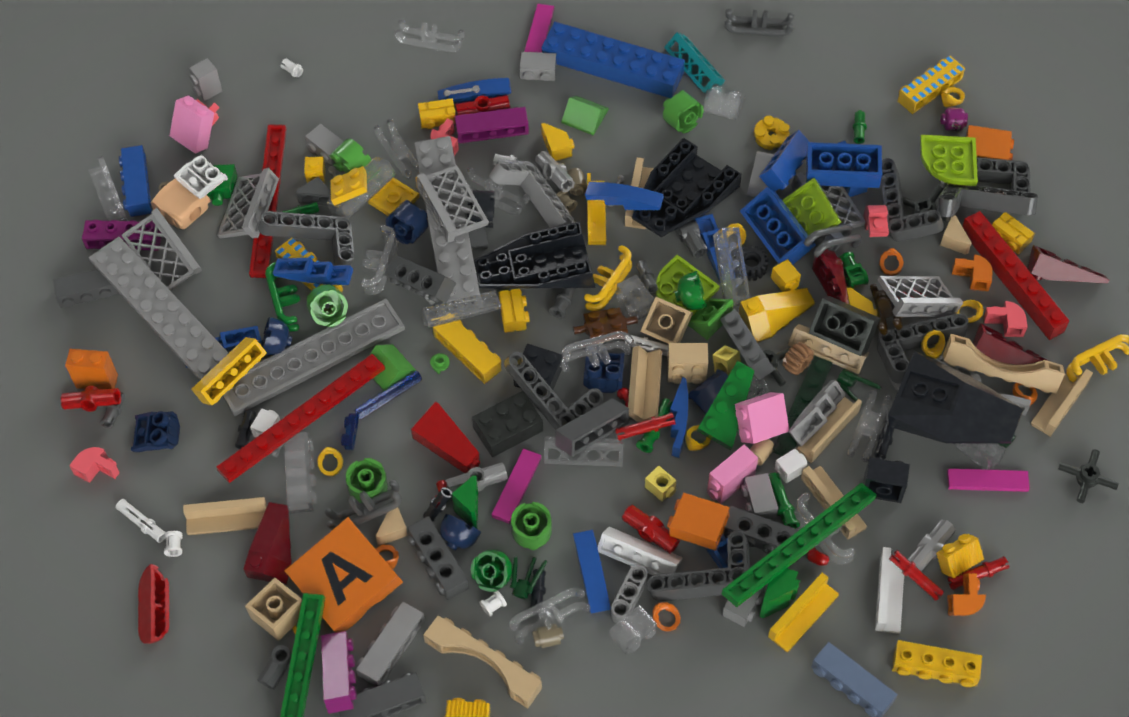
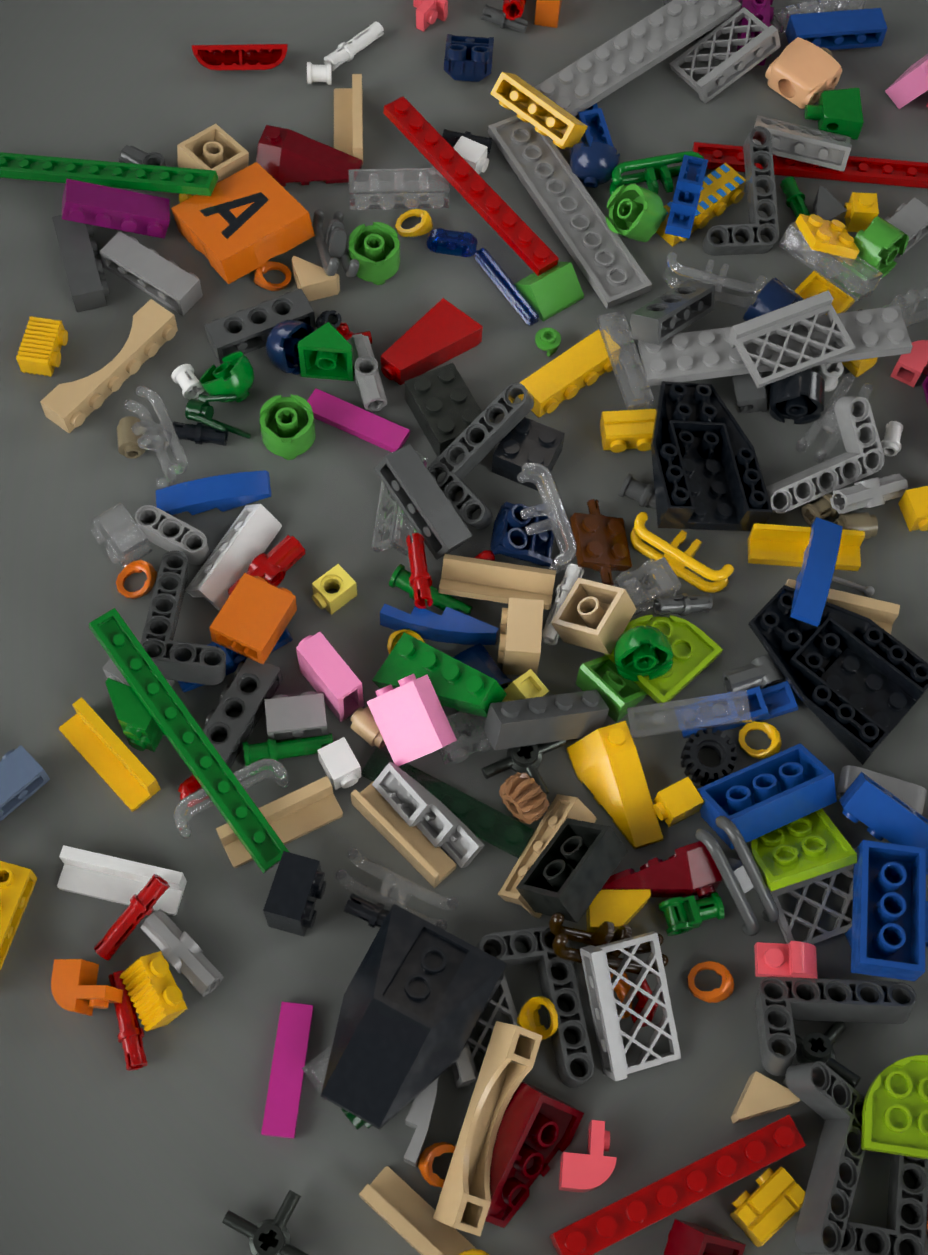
camera: 90 degrees right, 5 degrees up
(200, 176) = (835, 79): white slope -> none
(848, 379) = (484, 874): dark green plant -> none
(975, 305) = (605, 1115): yellow piece -> none
(977, 269) = (685, 1129): orange brick -> none

